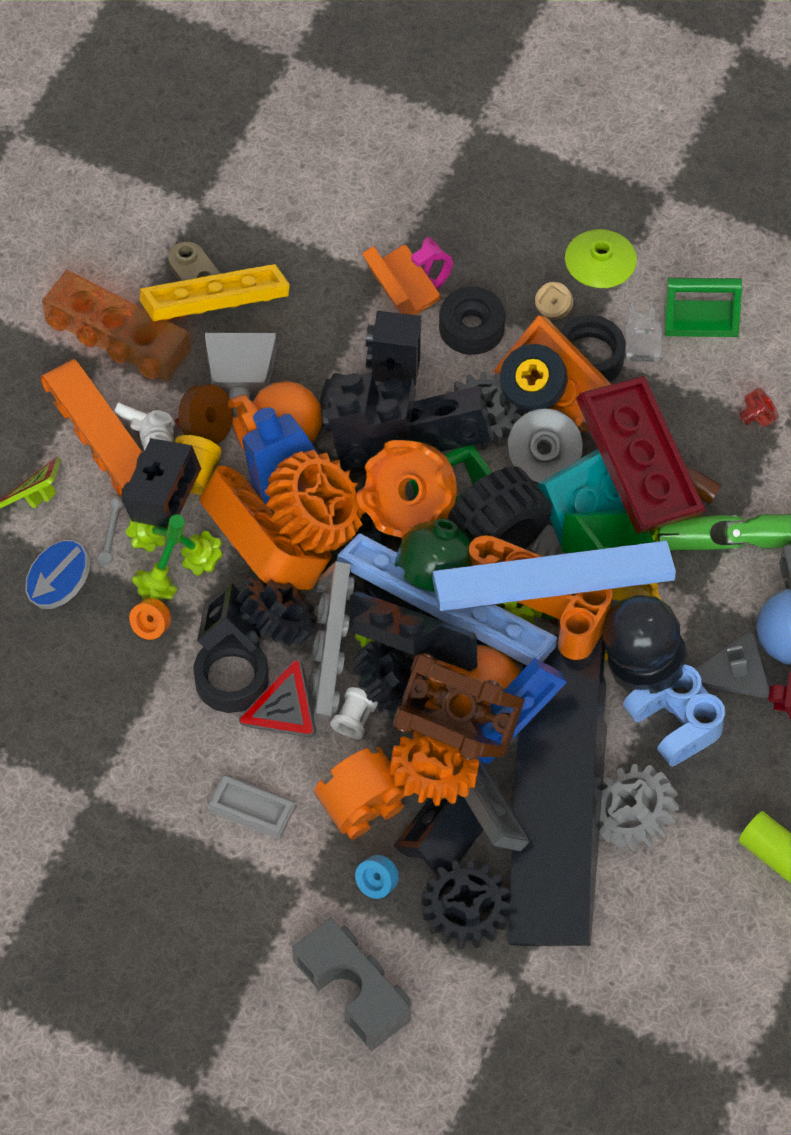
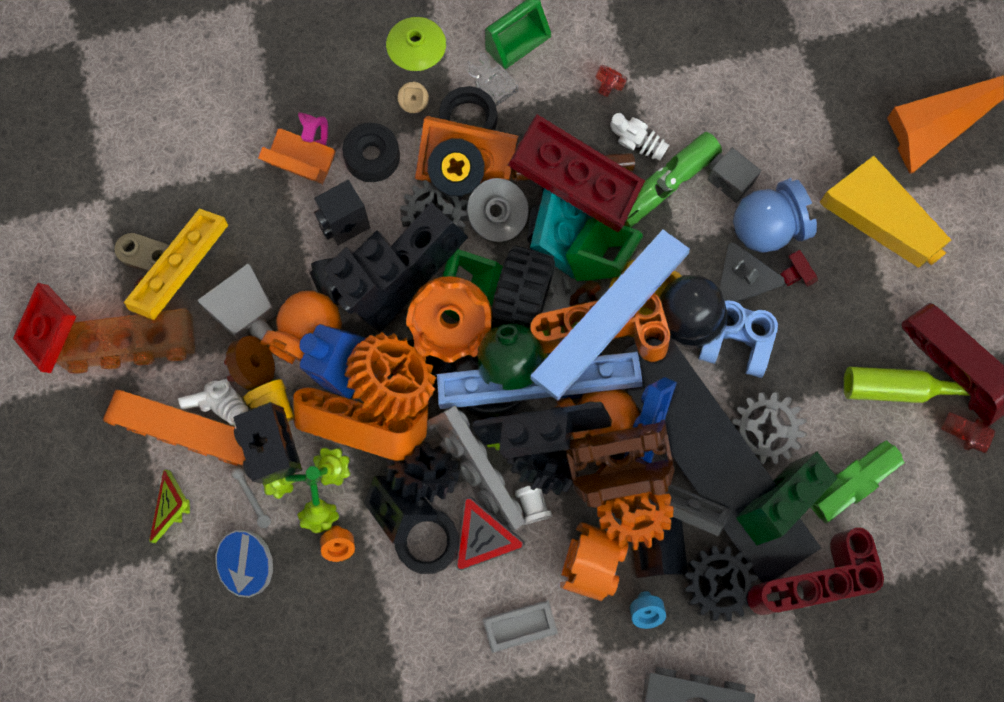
camera: 40 degrees left, 15 degrees up
(56, 265) = (44, 327): none -> red tile
(556, 957) = (815, 584): none -> dark red beam
(569, 861) = (782, 507): none -> dark green arch
(679, 916) = (858, 481): none -> bright green piece
(738, 472) = (634, 135): none -> white piece

